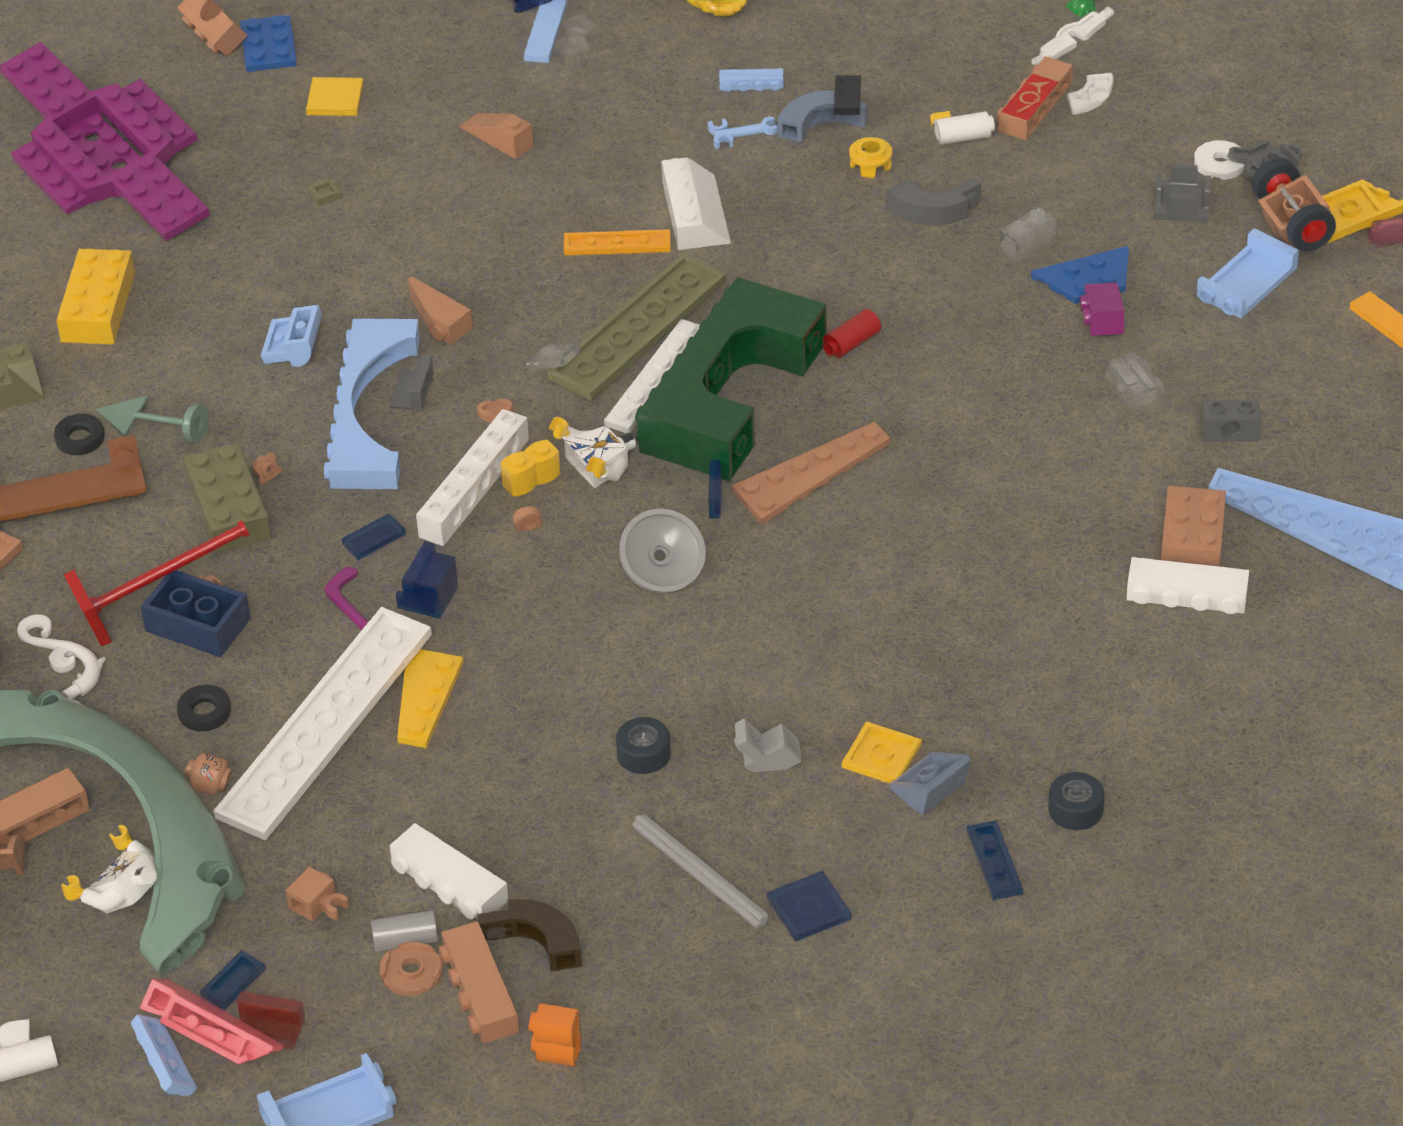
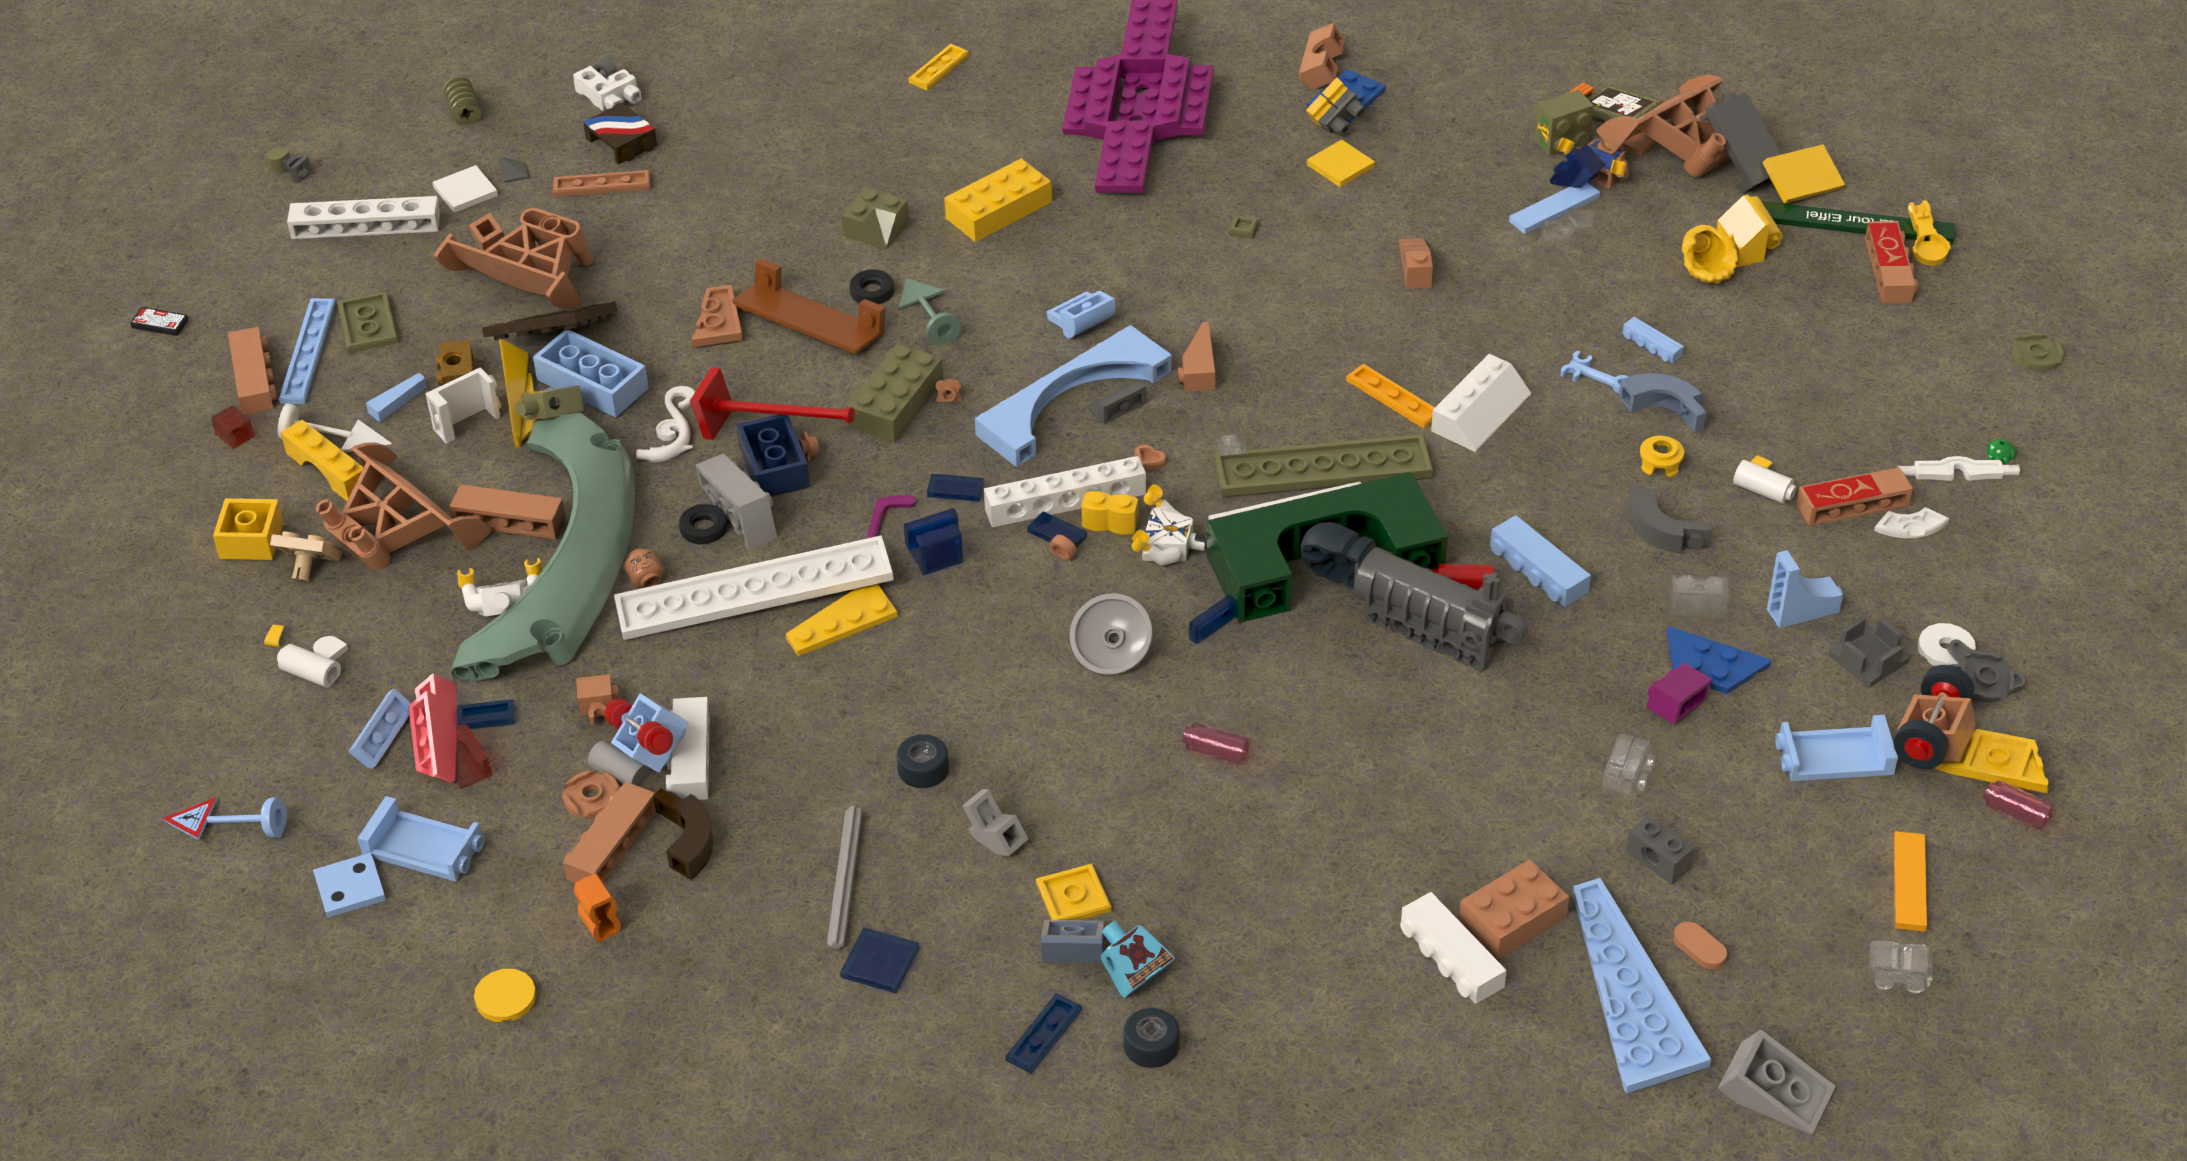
camera: 45 degrees right, 0 degrees up
(224, 662) = (739, 499): none -> light grey wedge
(281, 53) = (1336, 108): none -> dark grey hips
(412, 879) = (645, 730): none -> light blue brick
(497, 512) = (1047, 527): none -> clear blue tile
(794, 479) = (1266, 651): nougat wing -> none
(839, 572) = (1216, 743): none -> clear pink brick
(847, 95) = (1695, 395): black tile -> none
(850, 364) = (1426, 602): none -> dark grey piece
(887, 285) = (1539, 561): none -> light blue brick
(995, 757) = (1133, 957): none -> medium azure torso
(1096, 185) = (1799, 598): none -> light blue arch
(1330, 465) = (1700, 945): none -> nougat tile

